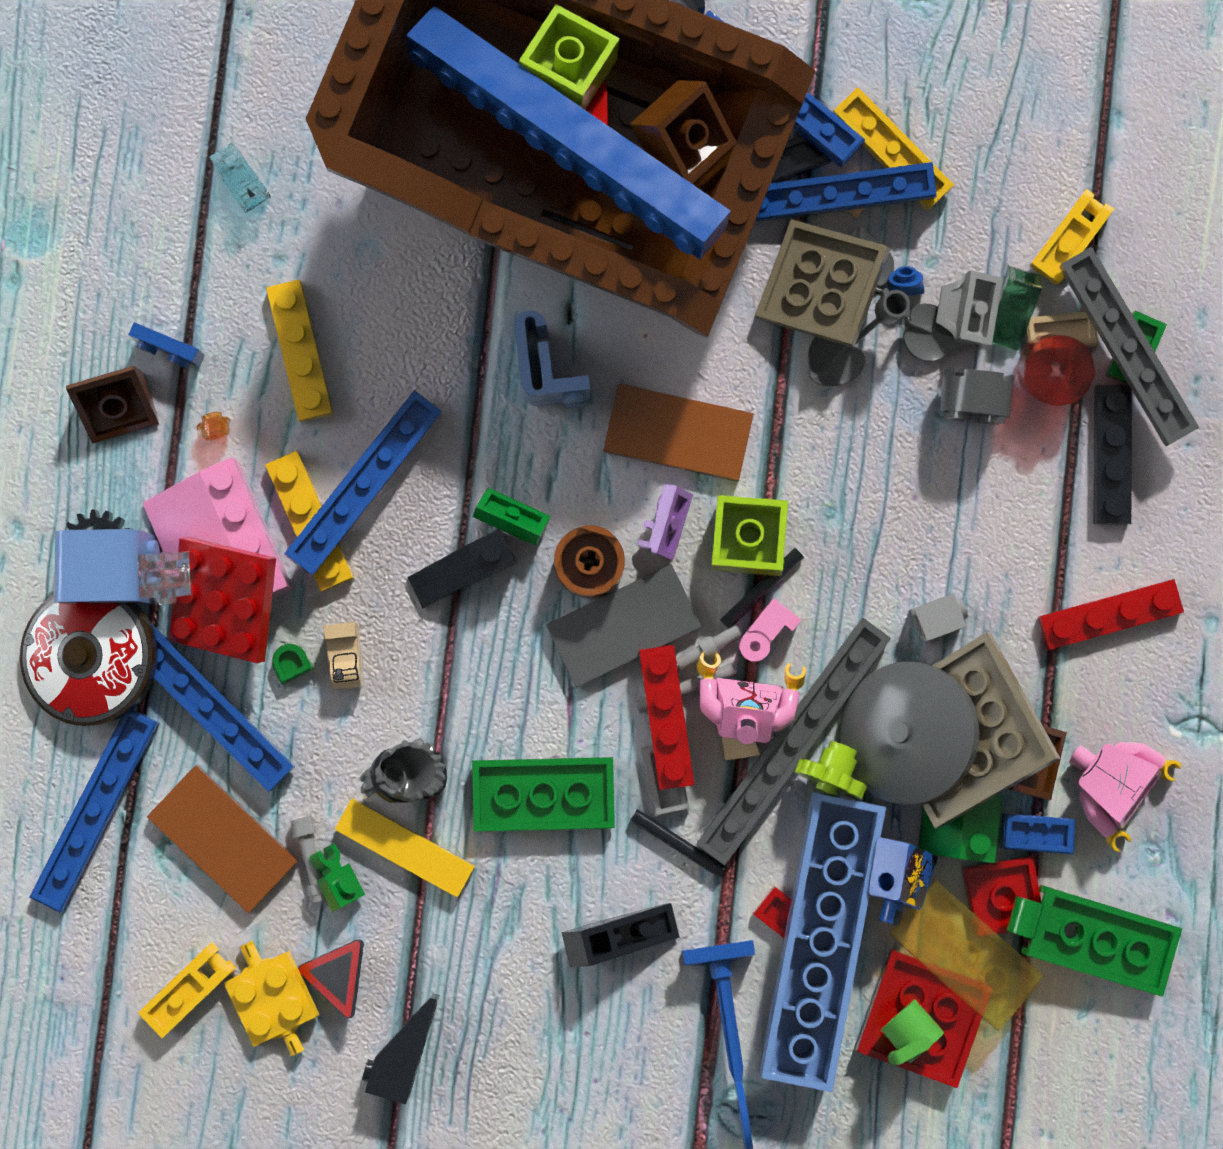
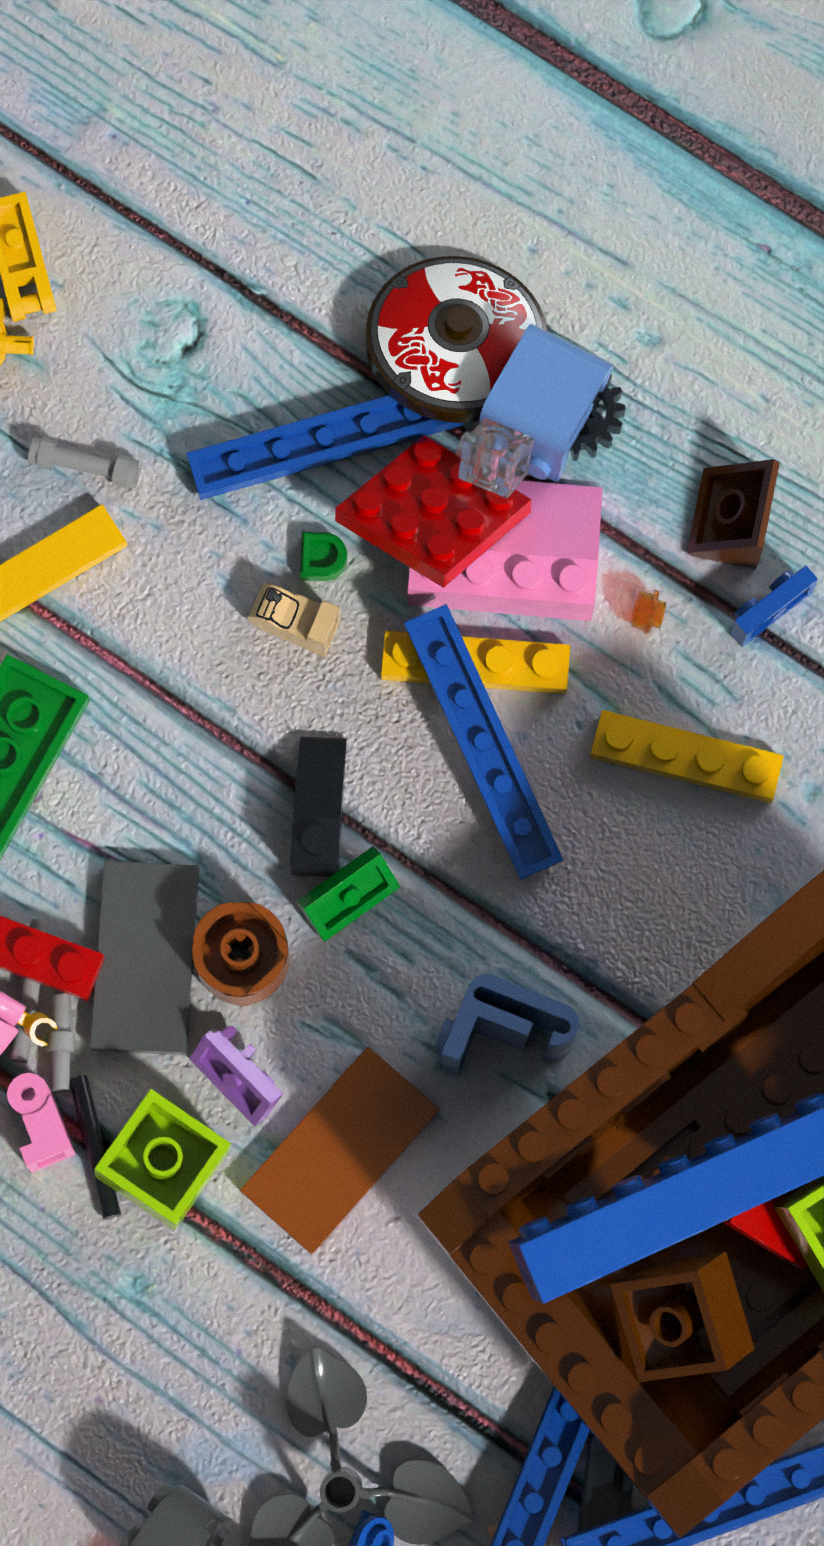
camera: 120 degrees right, 10 degrees down
(94, 810) = (279, 261): blue tile -> none
(222, 838) = (165, 380): dark orange tile -> none
(339, 883) = (38, 477): green plate -> none
(405, 773) = (115, 612): dark grey hair -> none
(822, 283) = (423, 1427): dark tan plate -> none

